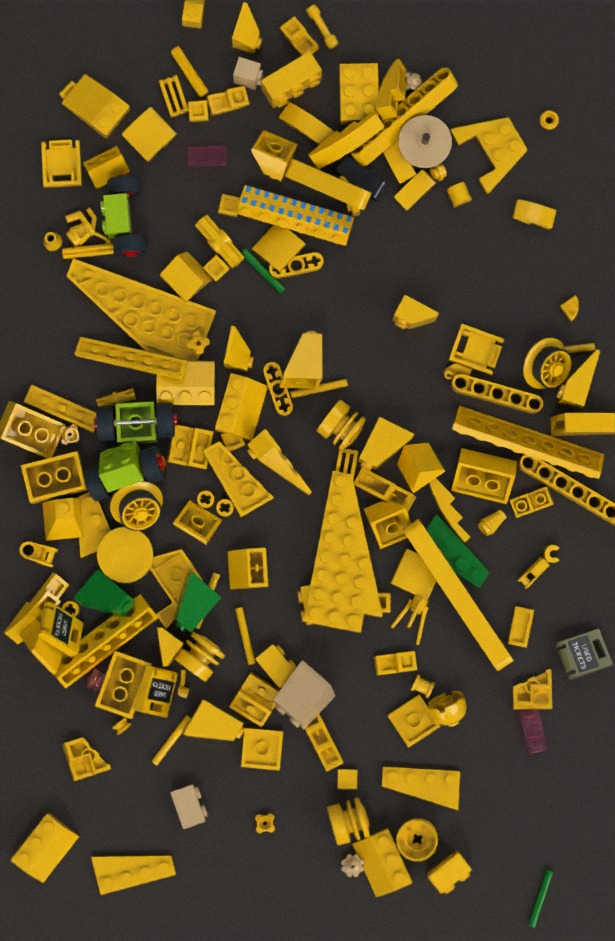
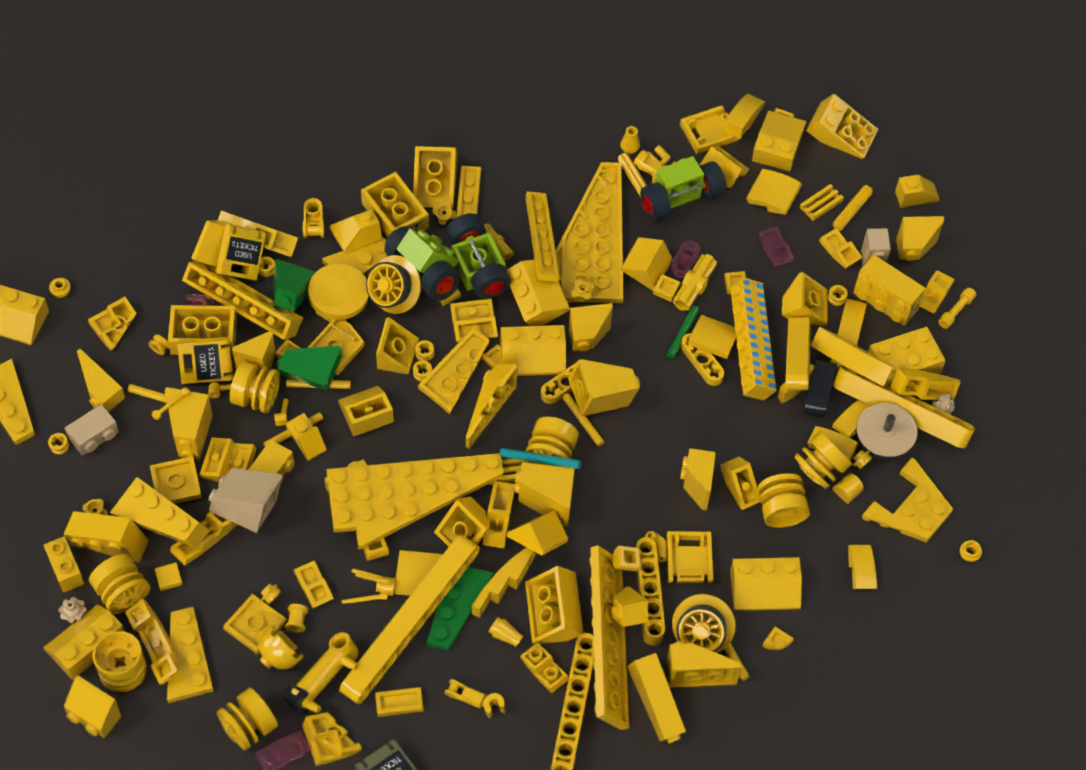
camera: 70 degrees right, 25 degrees down
(34, 792) = (62, 291): none -> yellow plate
(59, 126) = (743, 115): none -> yellow slope
(103, 44) = (842, 127): none -> yellow slope
(148, 788) = (100, 385): none -> yellow slope
(193, 240) = (684, 260): none -> clear pink plate
(194, 840) = (58, 449): none -> yellow bush
(198, 111) = (817, 225): yellow plate -> none
(208, 749) = (157, 414): none -> yellow hinge
(230, 642) = (281, 418): none -> yellow hand
(256, 627) = (306, 436): none -> yellow slope
(268, 125) = (832, 297): none -> yellow bush
(294, 773) = (158, 514): none -> yellow wedge
(296, 821) = (106, 535): none -> yellow wedge
(310, 862) = (63, 564): none -> yellow brick
(357, 440) = (540, 458): none -> teal bar
(393, 700) = (270, 593): none -> yellow plate
(406, 804) = (155, 639): none -> yellow slope
(425, 280) = (741, 482): none -> yellow slope
(436, 207) = (822, 460): none -> yellow wheel
(458, 254) = (783, 500): none -> yellow wheel
(468, 403) = (626, 558): none -> yellow brick
(480, 682) = (341, 653): none -> yellow piece
(502, 752) = (245, 720): none -> yellow wheel
(513, 417) = (630, 608): none -> yellow slope
(523, 298) = (766, 584): none -> yellow slope

